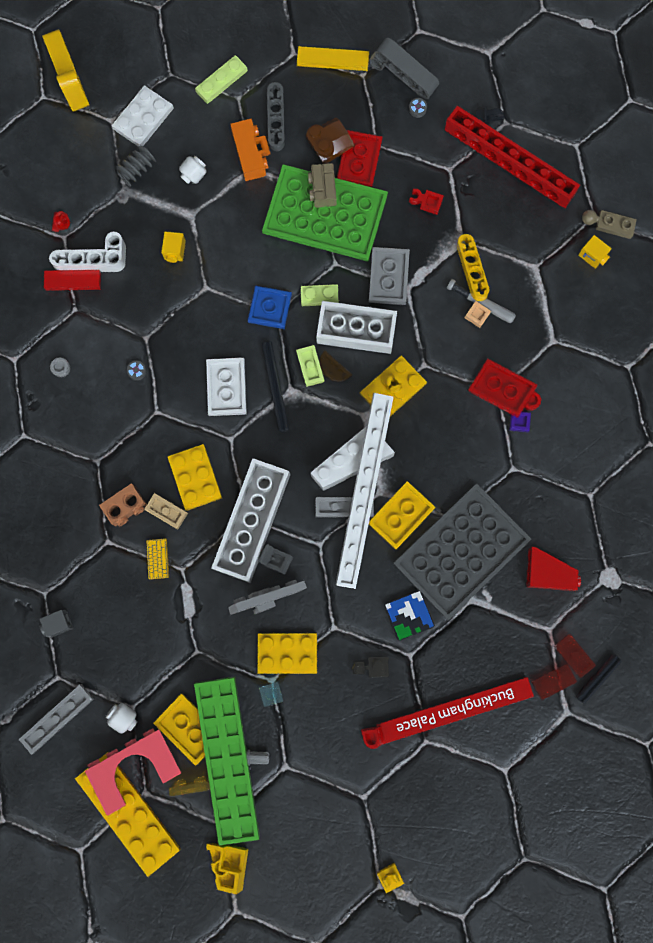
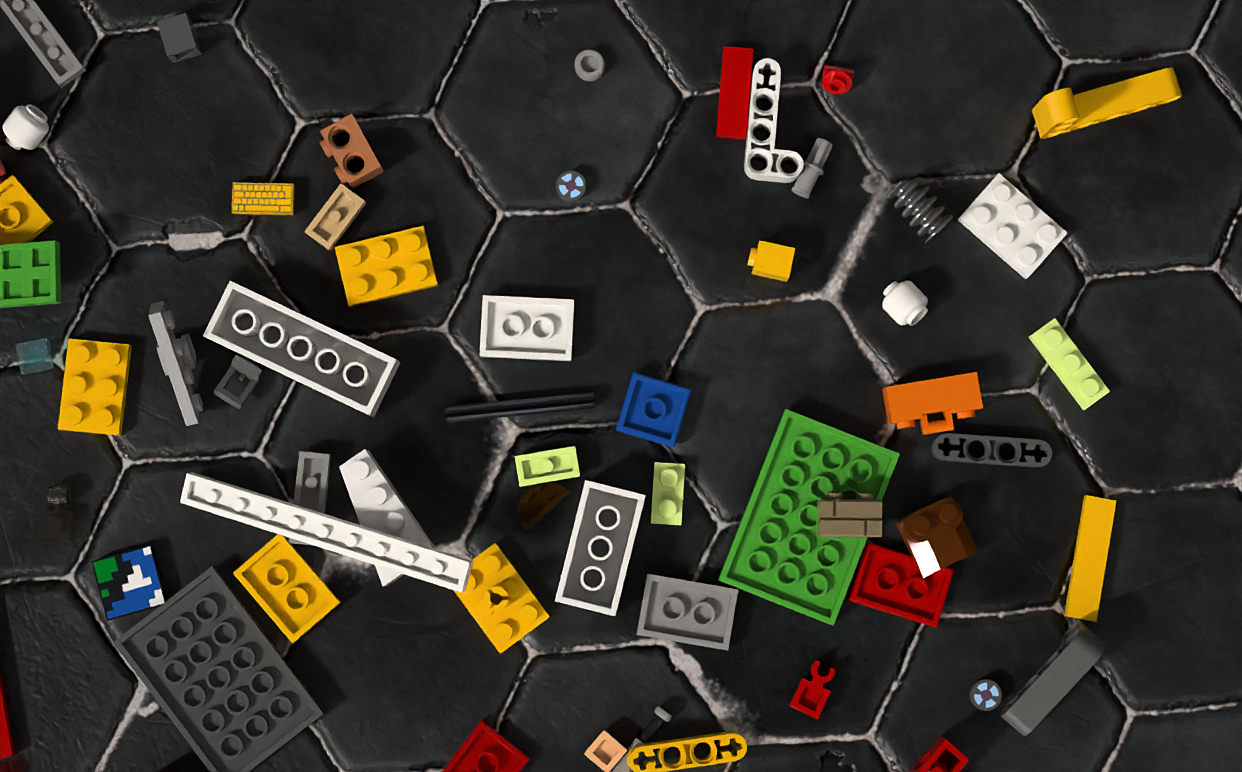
camera: 90 degrees right, 5 degrees up
(108, 227) = (812, 168): none -> light grey axle

